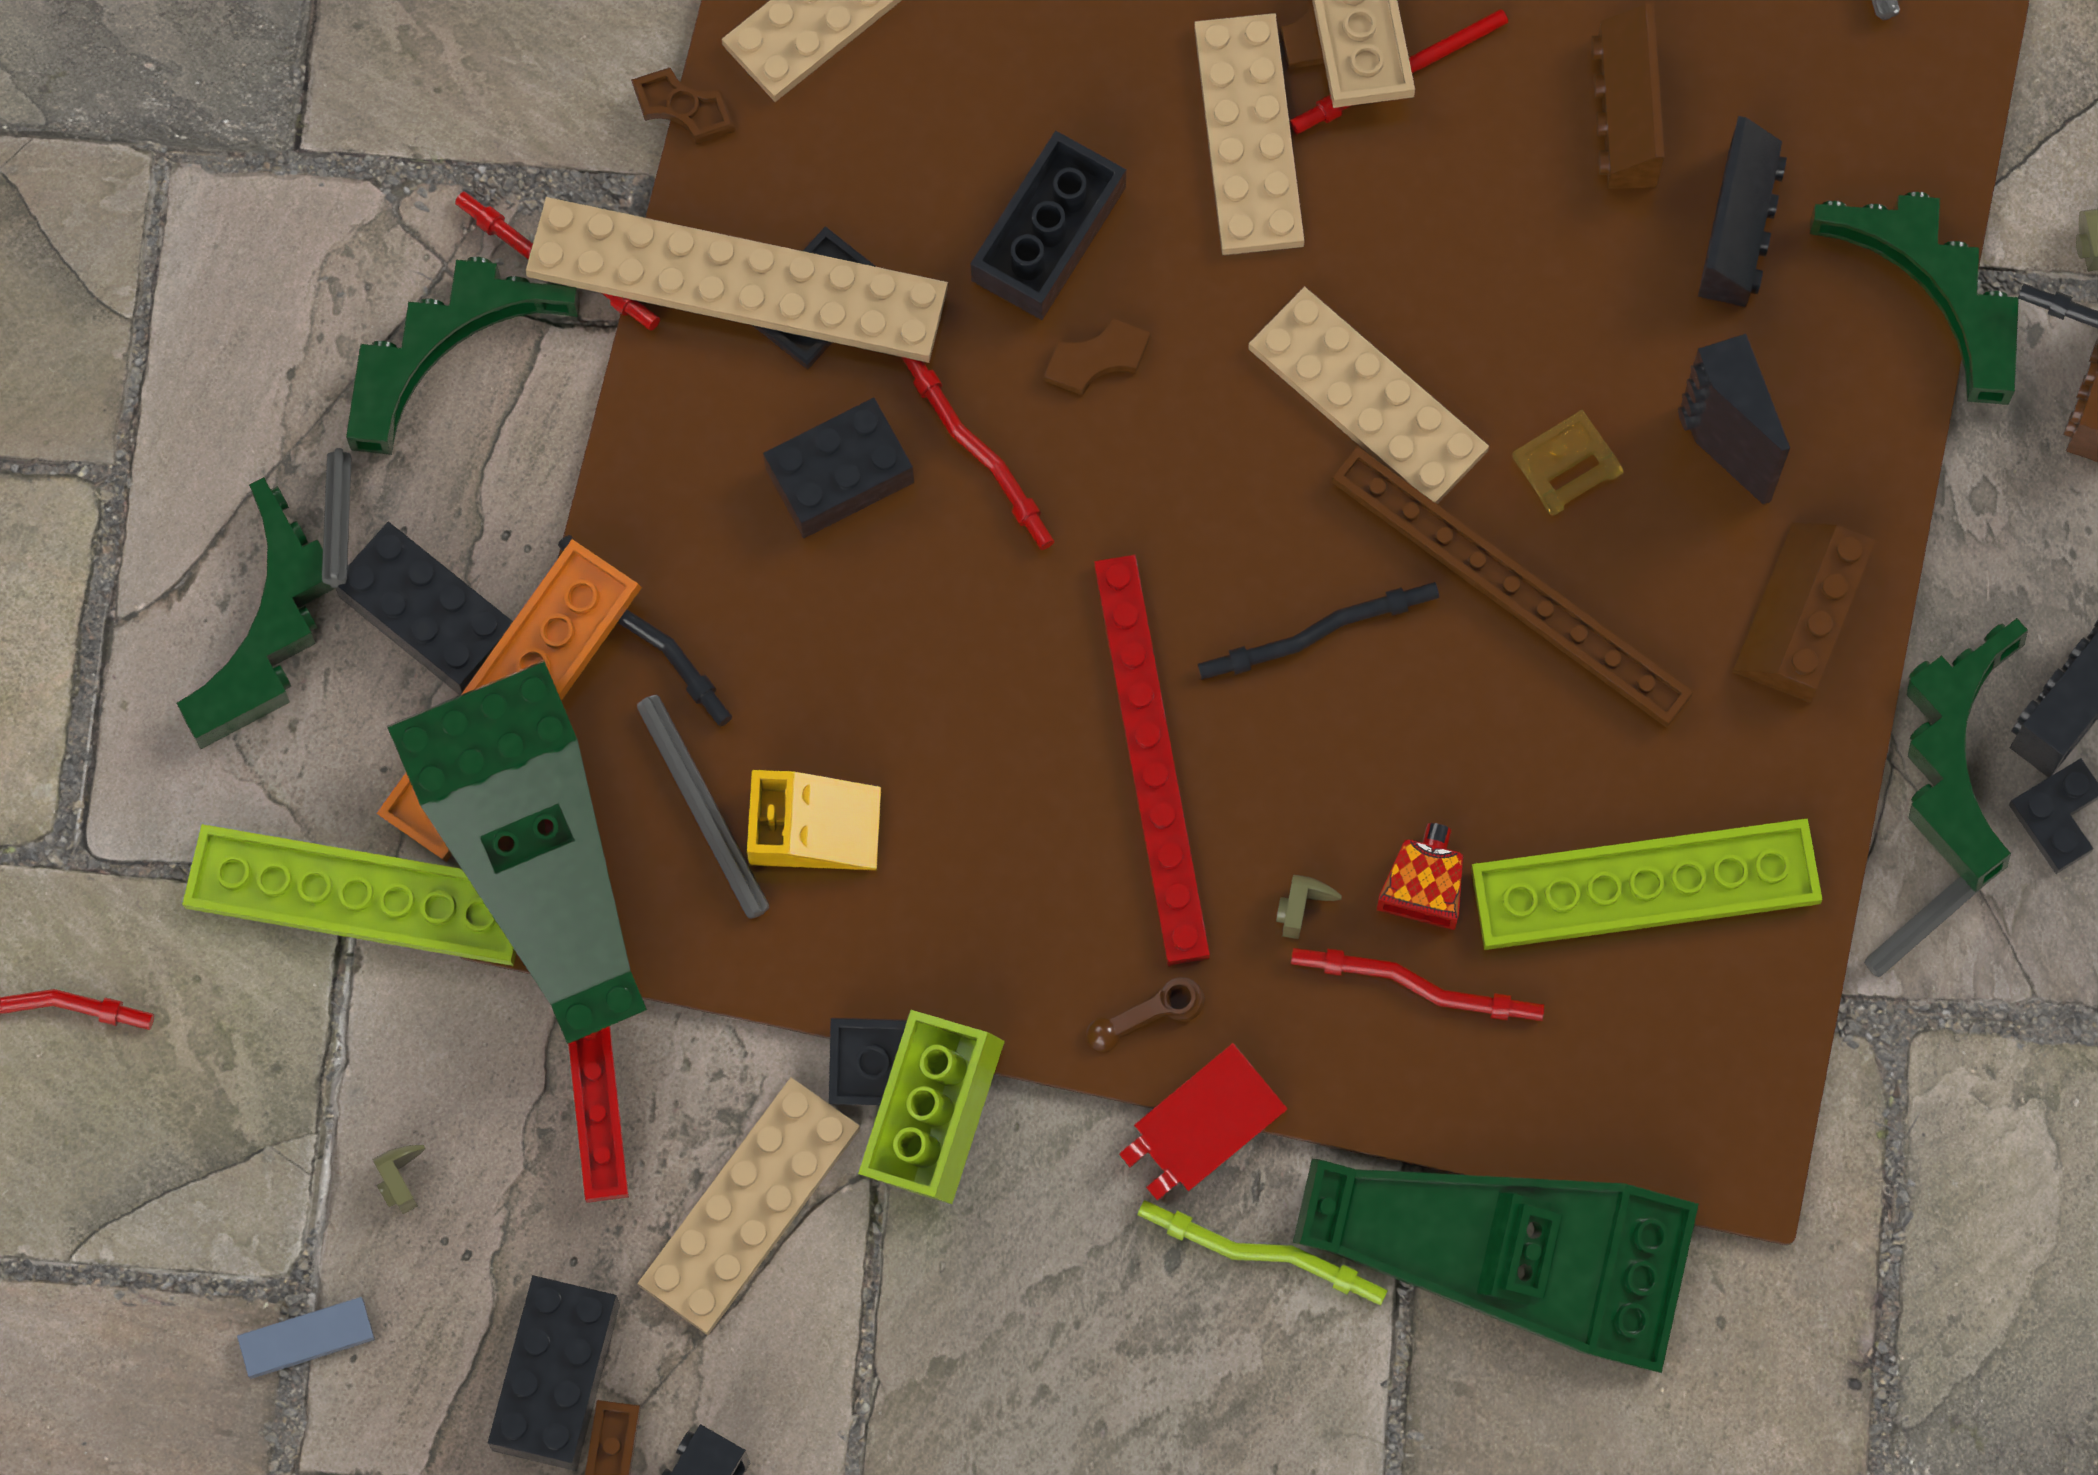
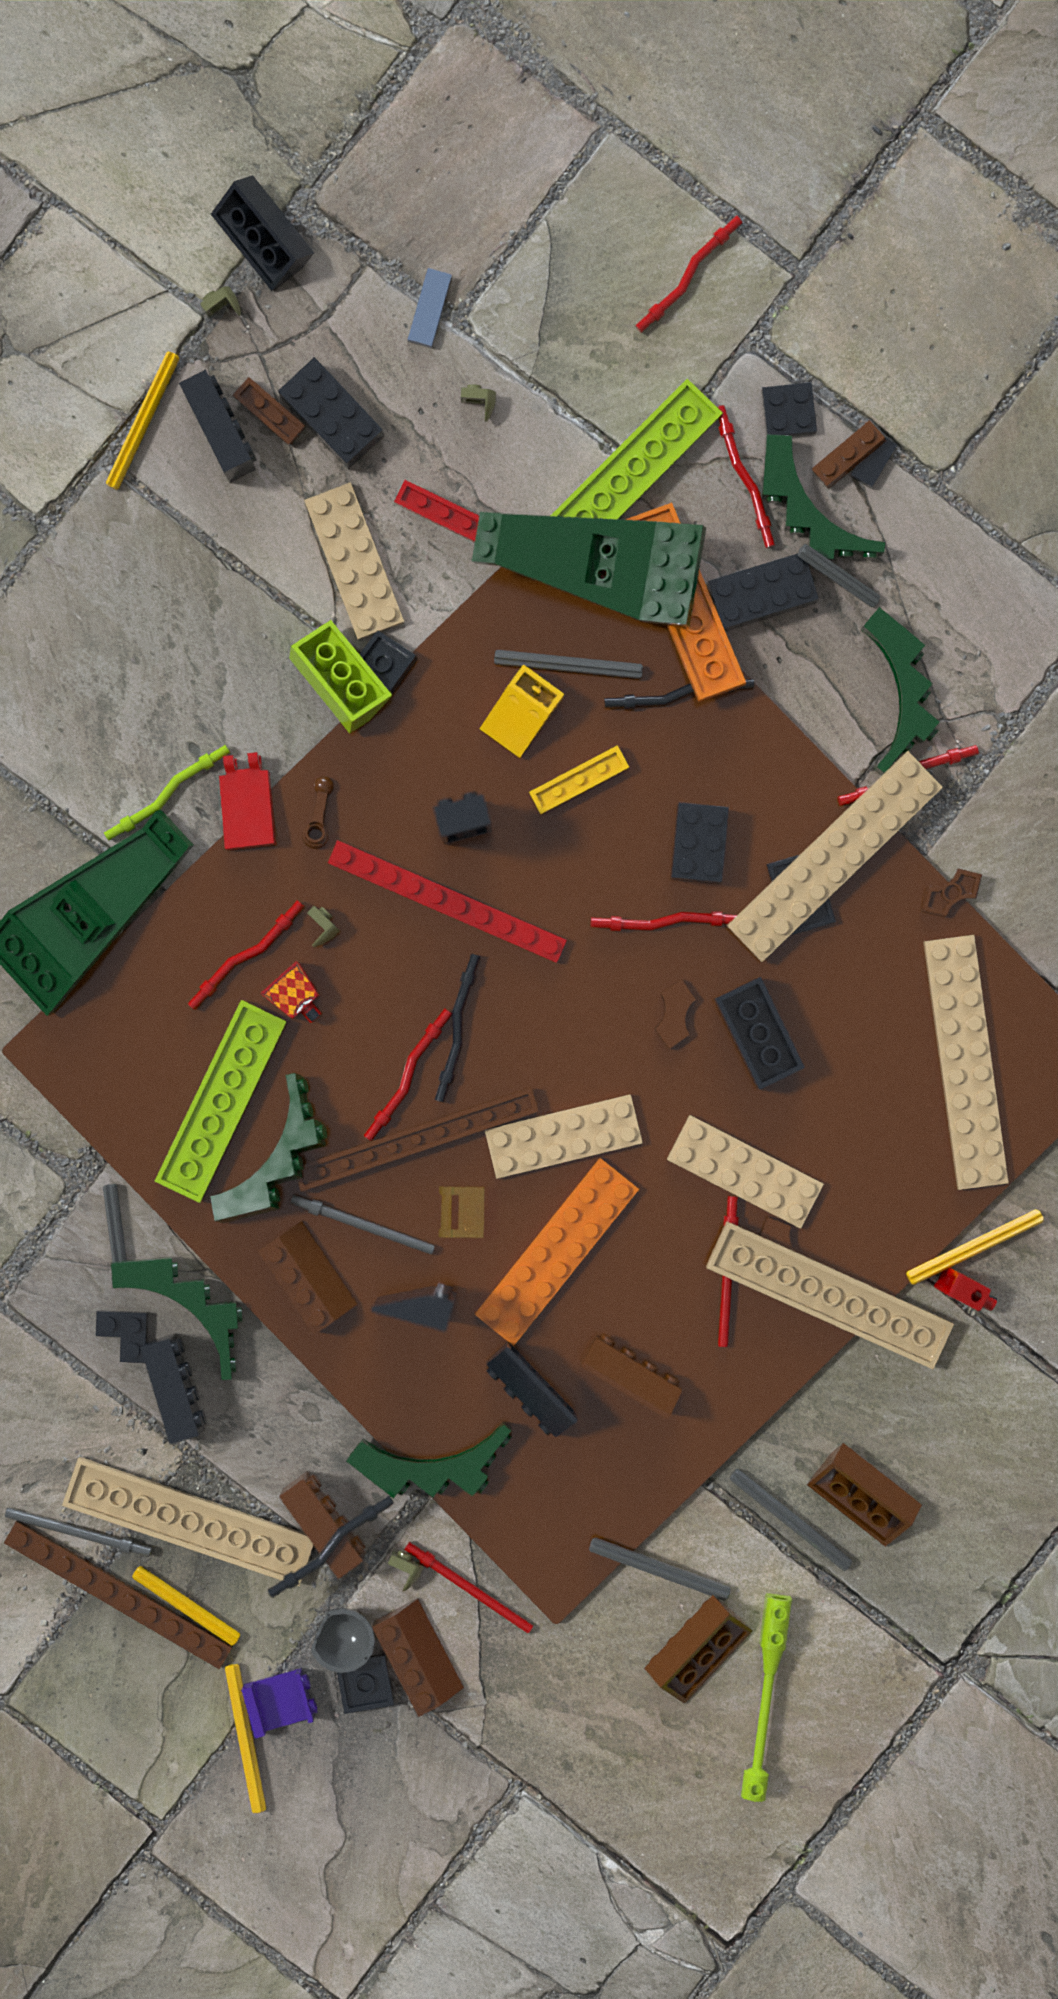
camera: 120 degrees right, 15 degrees up
(138, 582) = (872, 466): none -> black tile
(138, 741) = (789, 409): none -> black plate
(152, 617) = (848, 454): none -> reddish brown plate
(324, 674) = (763, 521): none -> red bar
(858, 686) = (579, 780): none -> yellow plate
(1023, 786) = (462, 817): none -> black brick
(1512, 652) = (383, 1117): none -> red bar
(1531, 307) = (556, 1251): none -> orange plate
(1700, 659) = (315, 1207): none -> dark grey bar
(1737, 742) = (299, 1135): none -> arch
(2066, 213) = (428, 1559): none -> red bar

